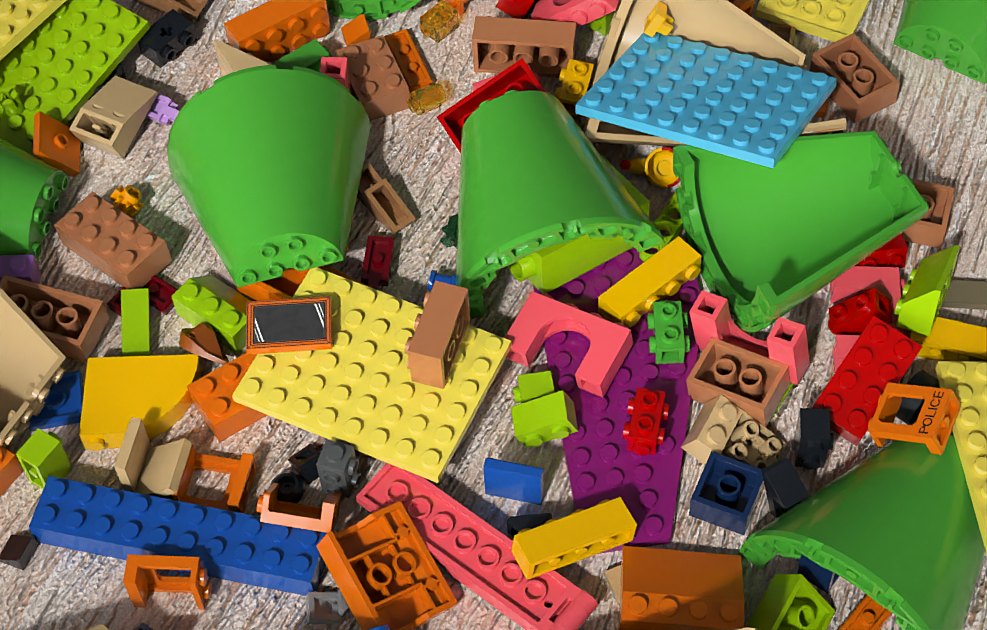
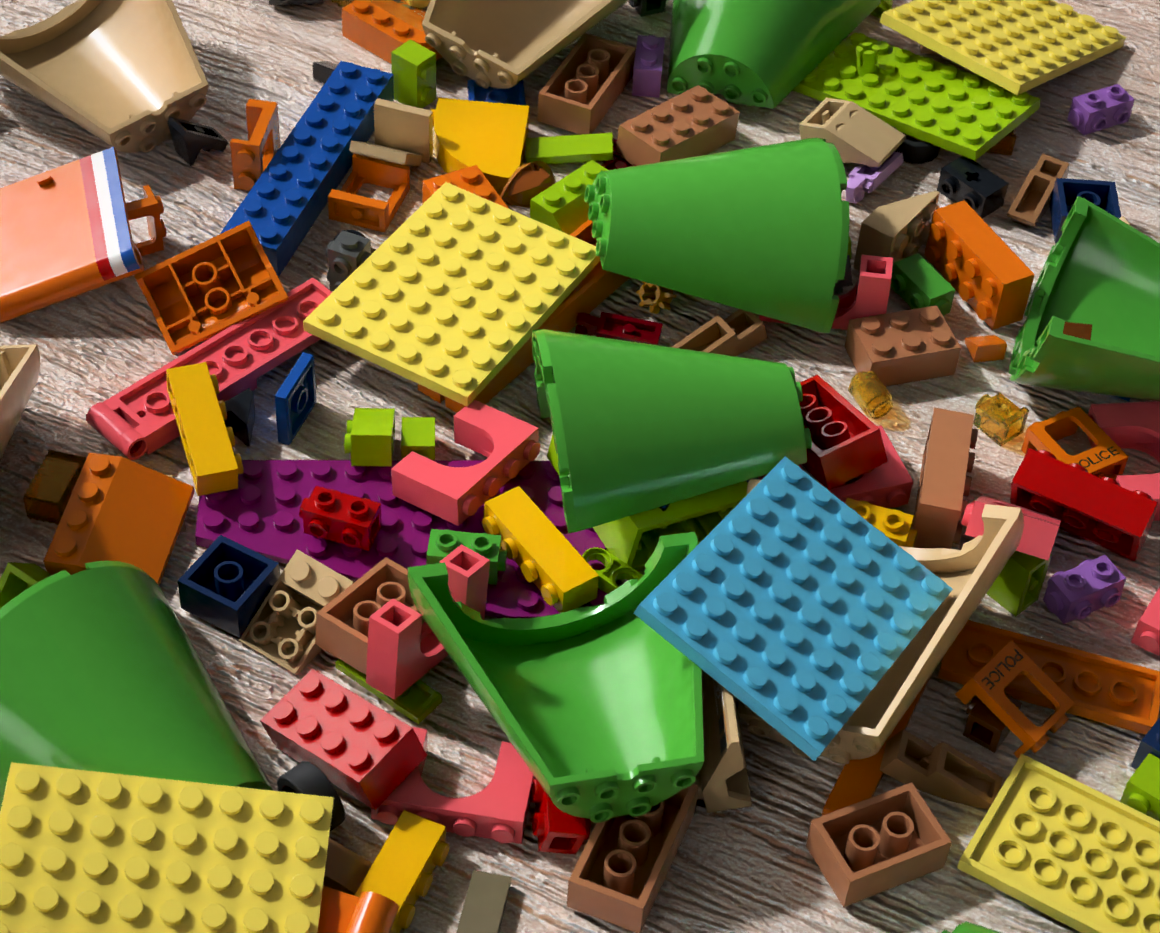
camera: 90 degrees right, 10 degrees down
(56, 144) = (808, 88): orange plate -> none
(127, 200) = (738, 137): light orange gear -> none
(289, 325) = (517, 217): tile -> none
(299, 515) = (304, 232): orange panel -> none
(408, 59) = (938, 390): orange tile -> none
(438, 334) = (463, 309): nougat brick -> none
(658, 21) = (949, 578): yellow tile -> none
(783, 487) = (212, 629): black slope -> none
(812, 438) = (275, 669): black brick -> none
(854, 314) = (452, 761): red brick -> none
(926, 291) = (458, 830): lime slope -> none
(932, 424) = (242, 752): orange window -> none

